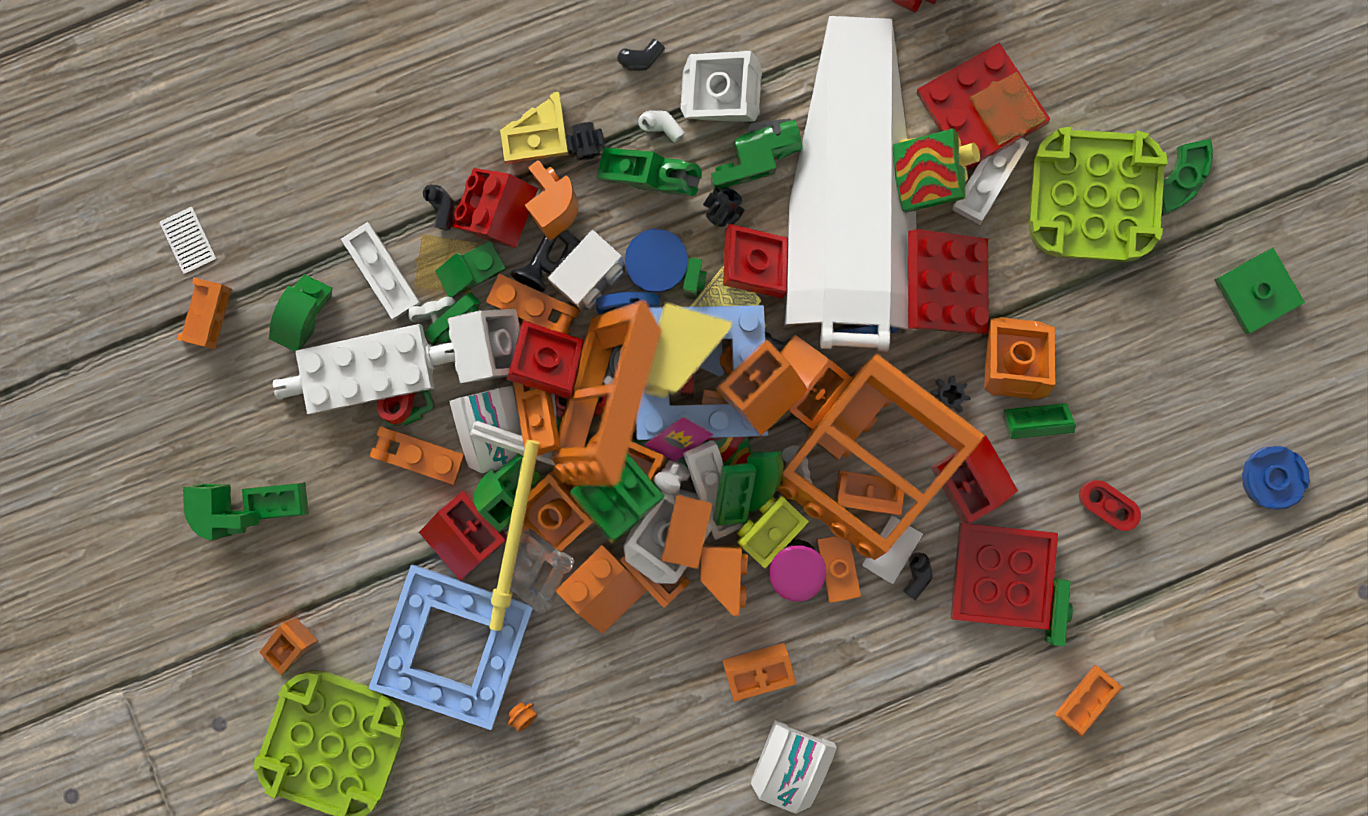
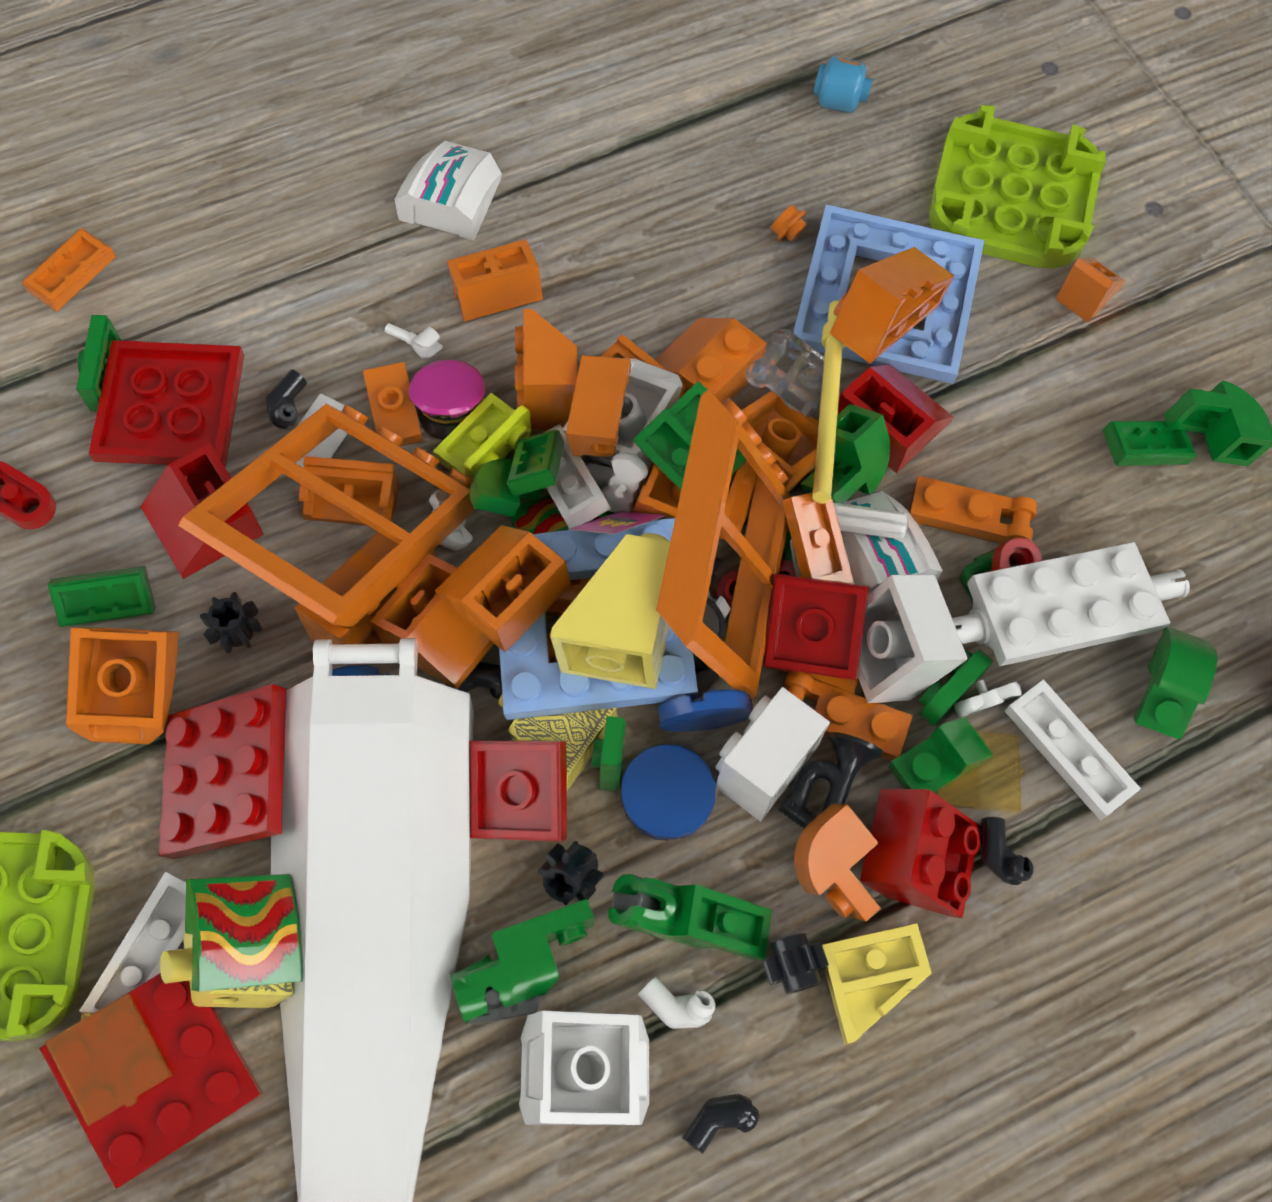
camera: 175 degrees right, 20 degrees down
(456, 616) = (888, 301): none -> orange wedge
(814, 620) = (423, 344): none -> white hand

